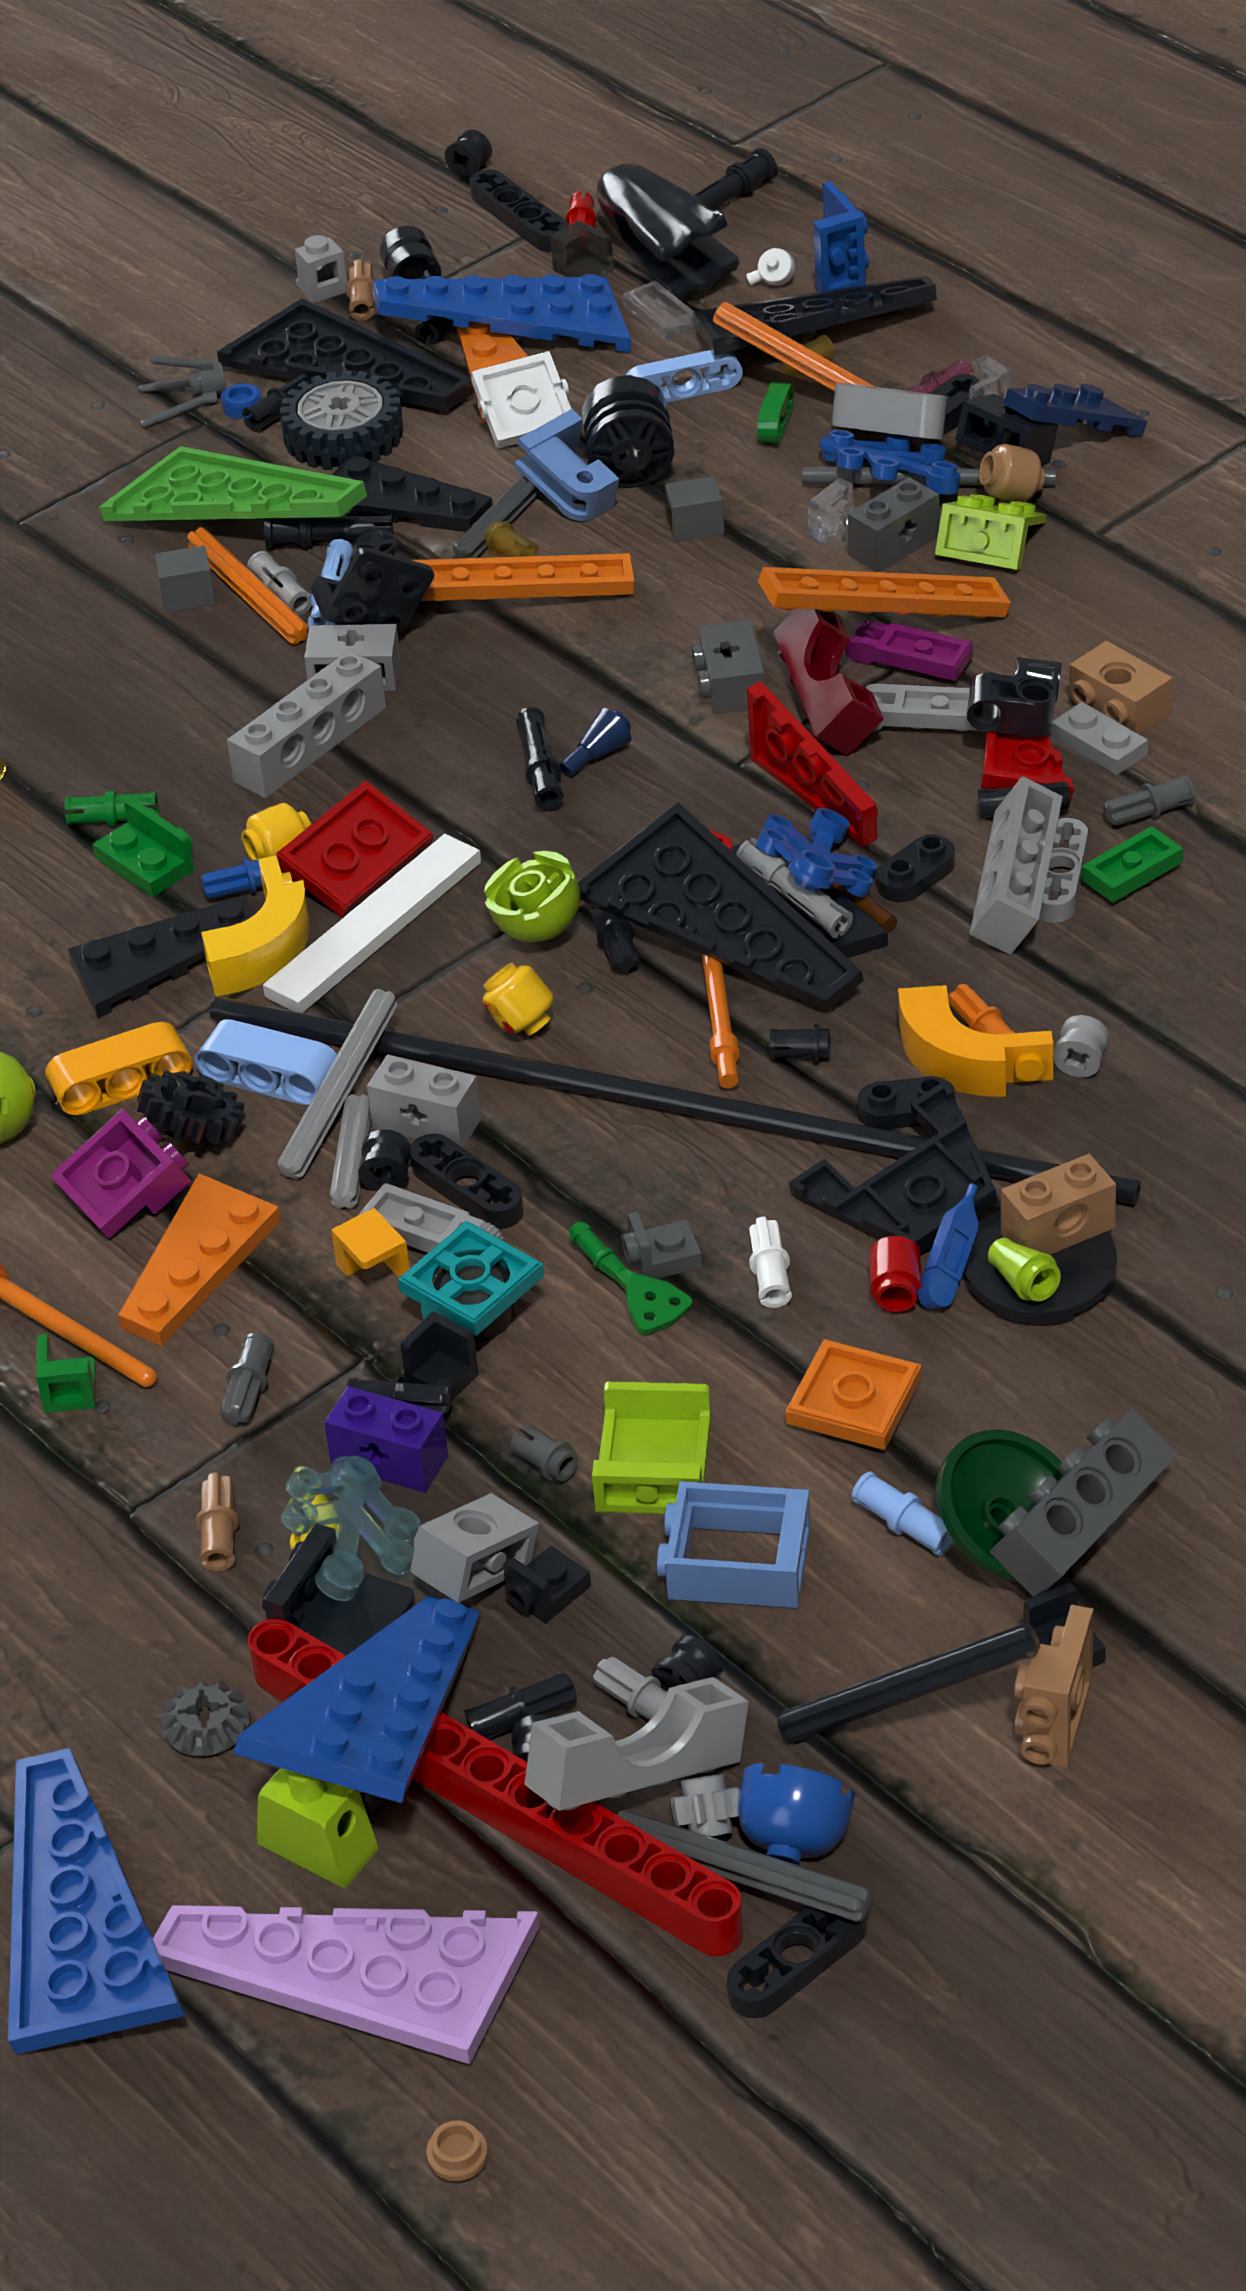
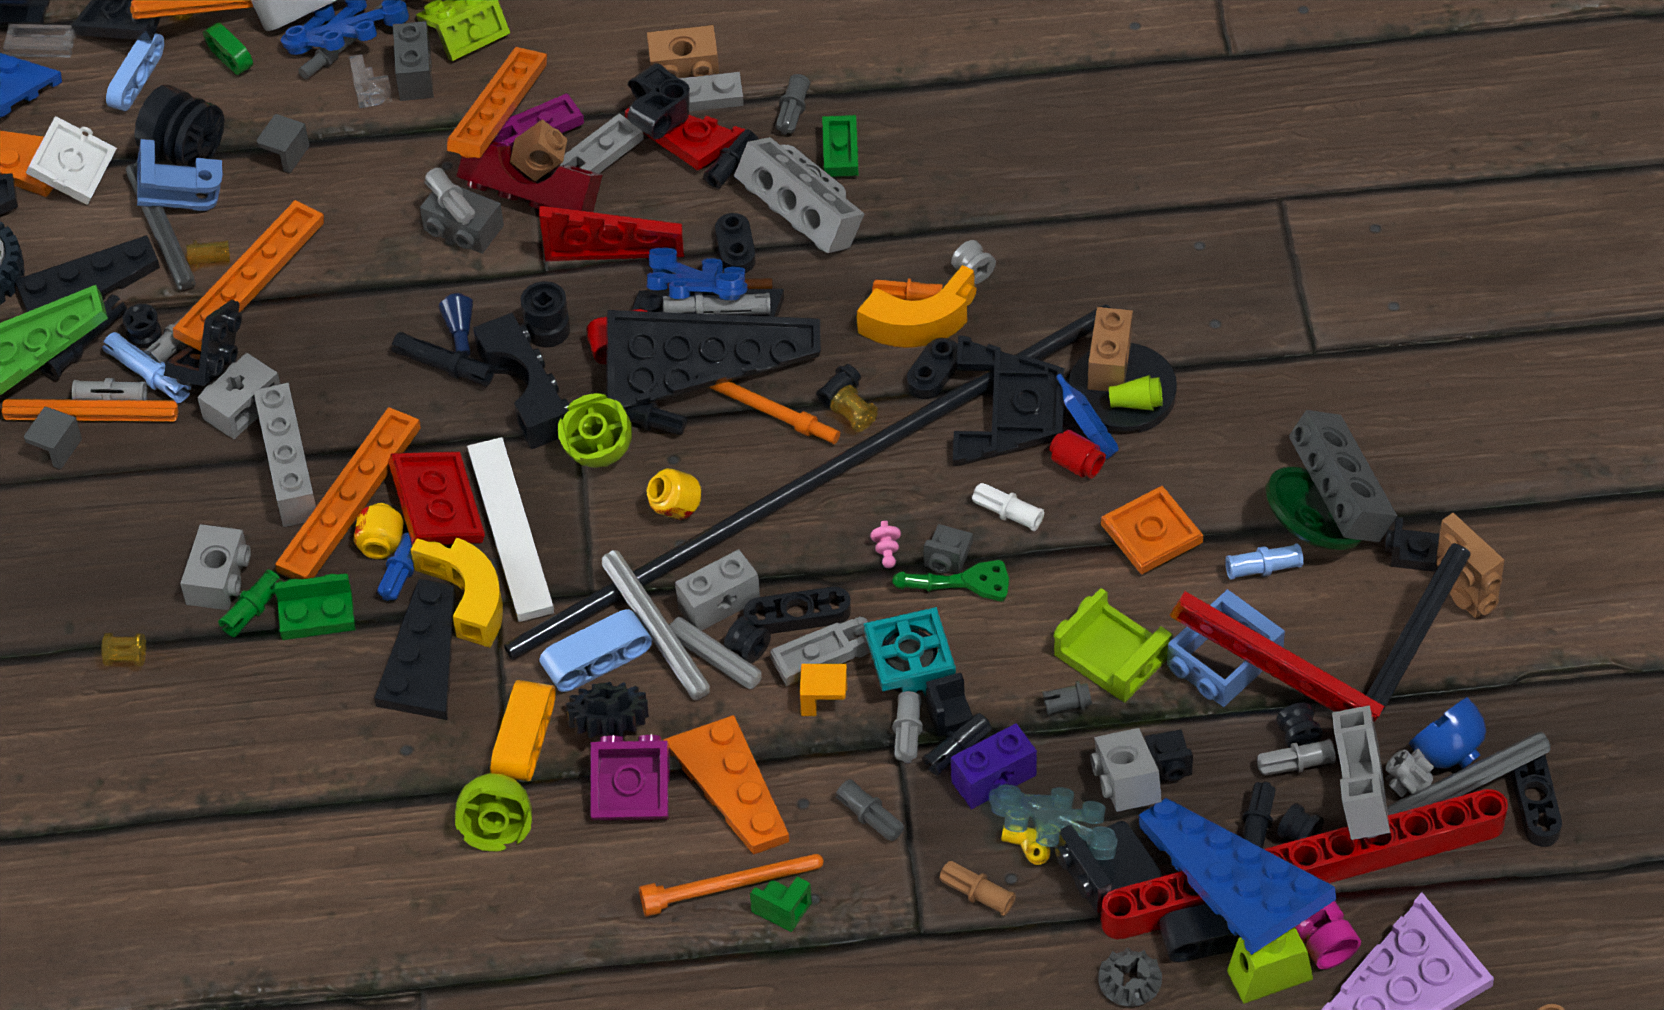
camera: 55 degrees left, 10 degrees up
(128, 757) = (215, 567): none -> light grey brick
(305, 791) = (347, 496): none -> orange plate
(376, 1349) = (907, 726): none -> light grey axle
(400, 1850) = (1329, 937): none -> dark pink wheel
(593, 790) = (508, 348): none -> black arch
(619, 1198) = (886, 542): none -> bright pink hair
(659, 780) = (545, 313): none -> black wheel
(725, 630) = (449, 196): none -> light grey axle
(732, 1582) = (1270, 656): none -> red tile
(776, 1077) = (854, 408): none -> clear yellow bush
(869, 659) = (538, 150): none -> medium nougat brick

